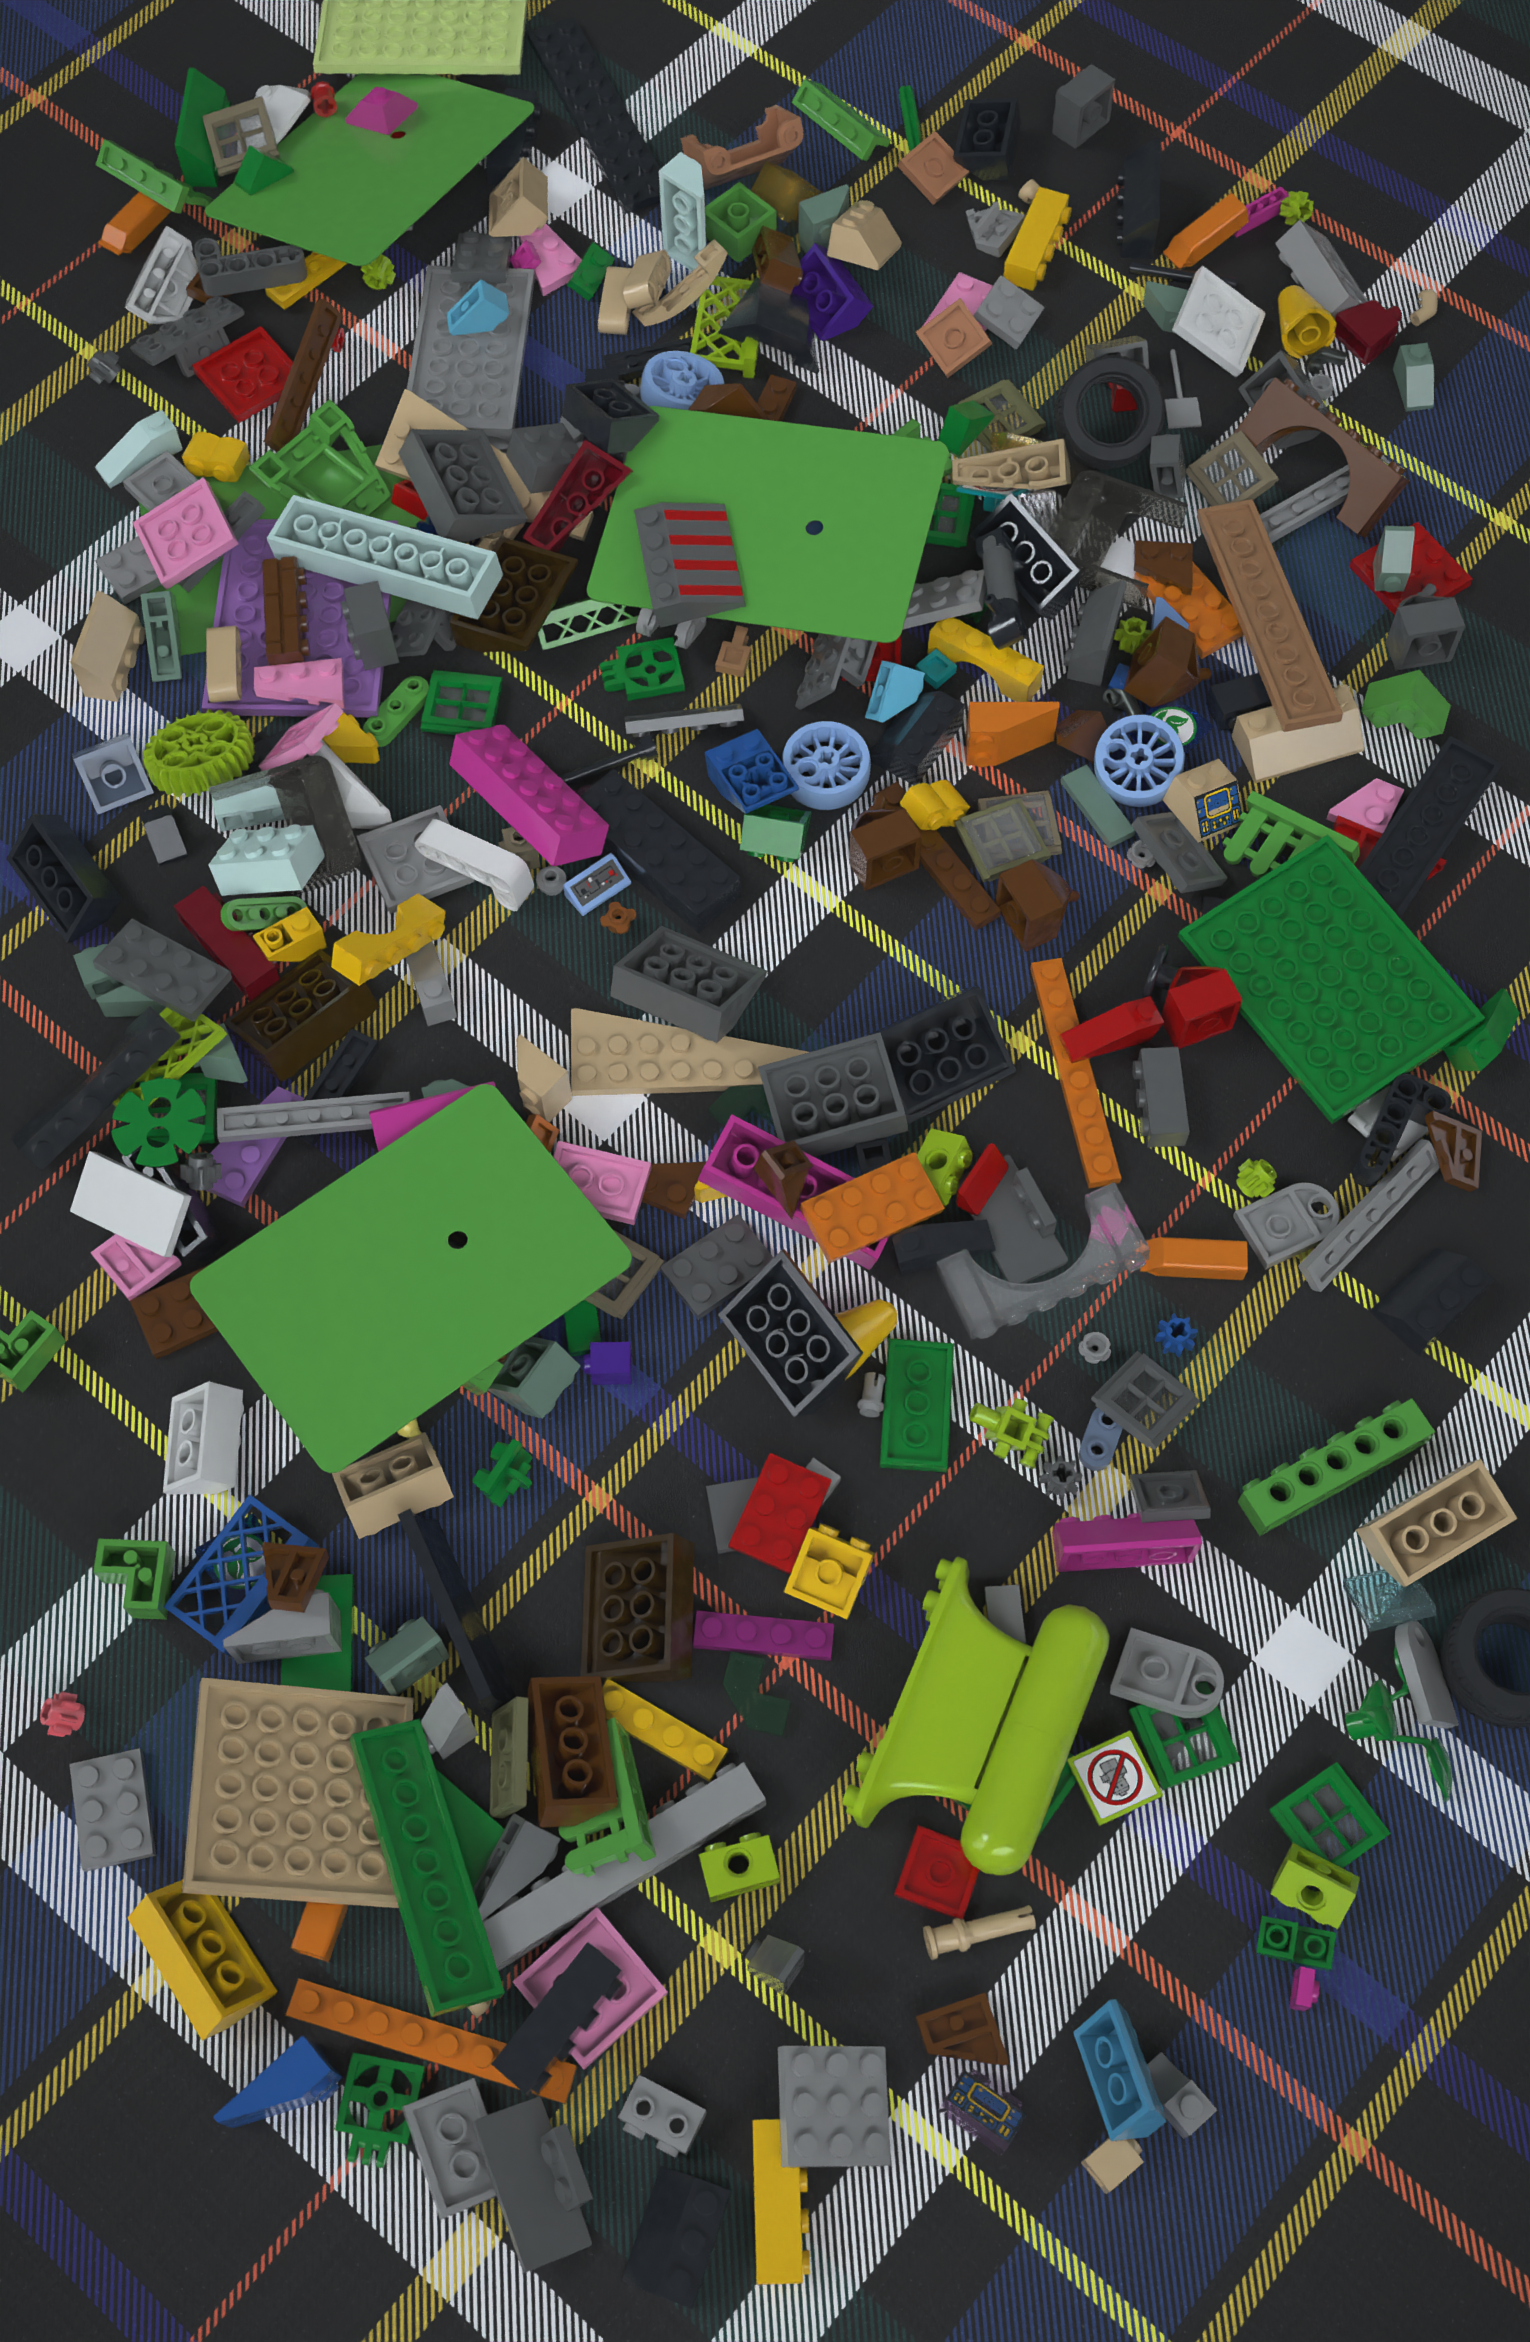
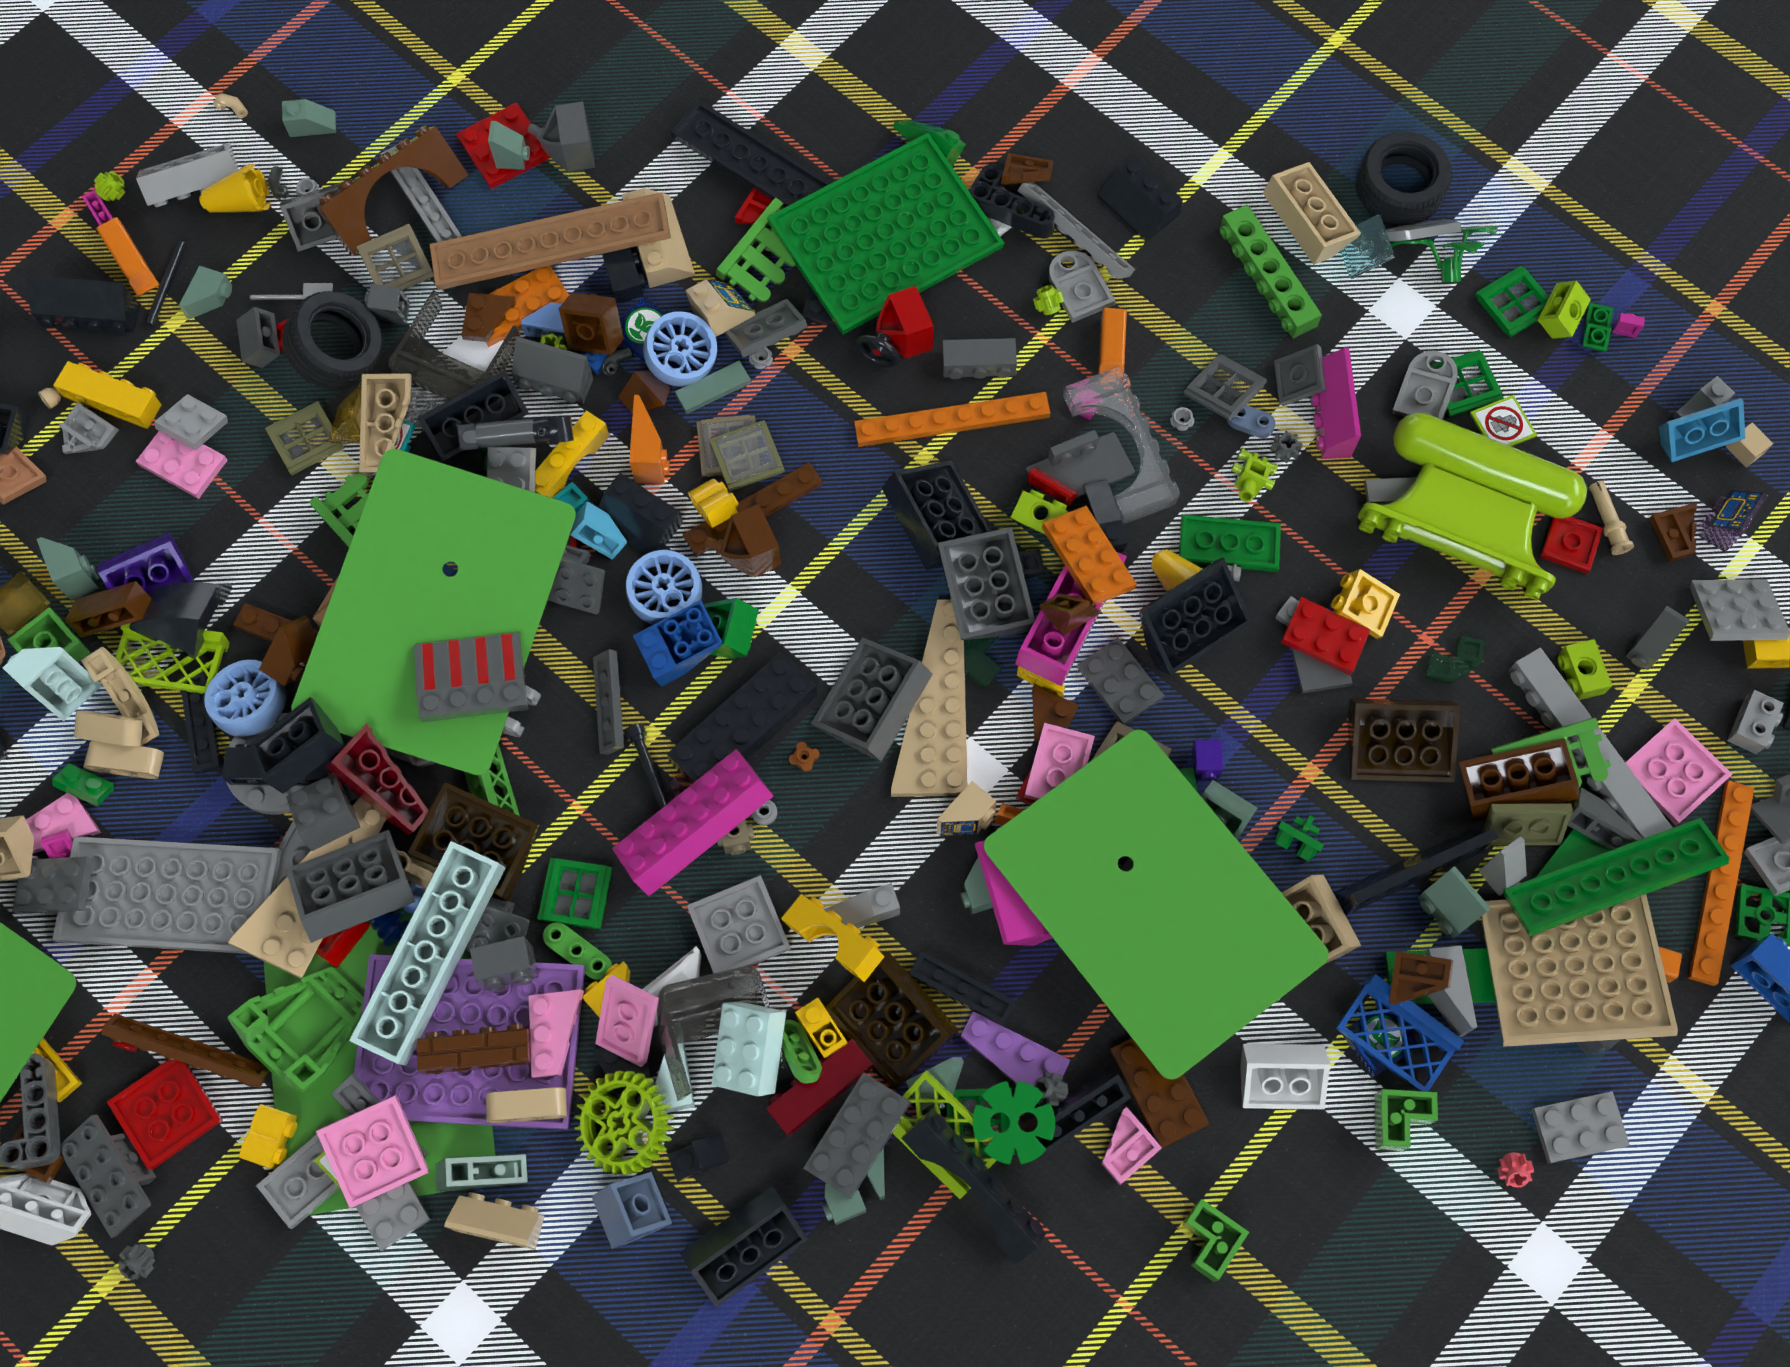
camera: 90 degrees left, 5 degrees up
(130, 1204) = (1082, 1147): white tile -> none
(139, 447) = (248, 1217): light aqua slope -> none
(201, 1957) = (1674, 1062): yellow slope -> none
(302, 1117) = (999, 1000): light grey plate -> none
(478, 310) = (131, 882): medium azure slope -> none
(478, 860) = (751, 870): white beam -> none
(558, 2019) = (1708, 786): black brick -> none
(596, 884) = (772, 774): slope -> none
(619, 677) = (553, 754): green piece -> none
(663, 1731) = (1489, 721): yellow plate -> none
(734, 656) = (546, 660): medium nougat plate -> none
(763, 1635) = (1412, 652): magenta plate -> none
(863, 236) = (93, 534): tan slope -> none
(954, 337) = (218, 465): nougat plate -> none
(963, 426) = (318, 464): green slope -> none
(1033, 902) = (812, 433): reddish brown piece -> none
(1113, 1030) = (925, 385): red slope -> none
(1174, 1326) = (1173, 363): blue gear -> none
(1219, 321) = (232, 254): white plate -> none
(1367, 329) = (252, 145): dark red torso -> none
(1370, 805) = (724, 196): bright pink wing -> none
(1408, 700) = (638, 156): bright green brick -> none

